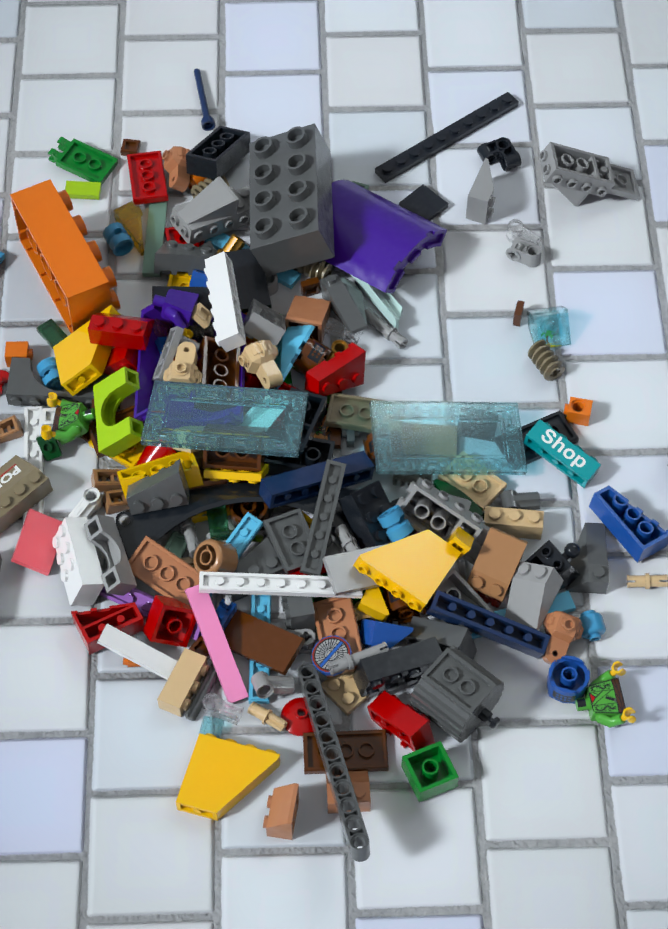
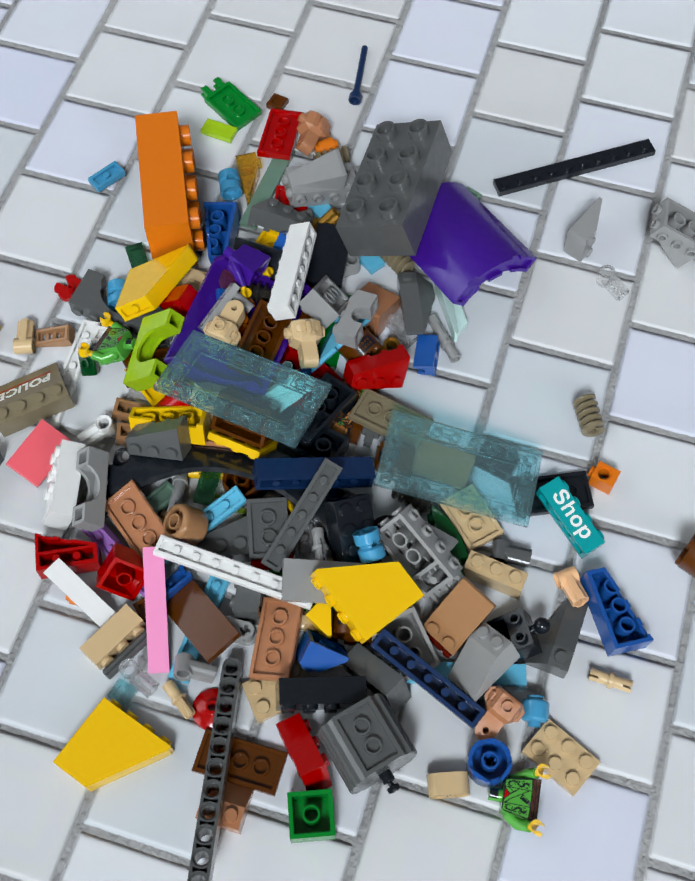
camera: 20 degrees right, 5 degrees up
(17, 349) = (98, 264): orange brick -> none
(120, 331) = (183, 271): red slope -> none
(130, 283) = (221, 226): none -> blue wedge
(201, 315) = (265, 278): tan tile -> none
(218, 152) = (348, 126): black brick -> none
(282, 812) = (151, 808): nougat slope -> none
(301, 342) = (360, 306): none -> light grey arch
(310, 287) = (387, 277): reddish brown plate -> none
(329, 650) = (260, 659): tile -> none
(352, 660) = (273, 674): light grey pin -> none
(375, 347) = (426, 354): none -> blue hinge
(424, 203) = (527, 226): black tile -> none
(461, 540) = (428, 582): yellow slope -> none
(500, 151) = (620, 194): black piece -> none
(518, 313) = (579, 359): reddish brown tile -> none
(525, 252) = (607, 300): light grey piece -> none
(538, 710) = (448, 785): none -> tan beam
(550, 325) = (606, 381): clear light blue slope -> none
(581, 509) = (569, 581): none -> light nougat piece
(637, 657) = (567, 759): none -> tan plate

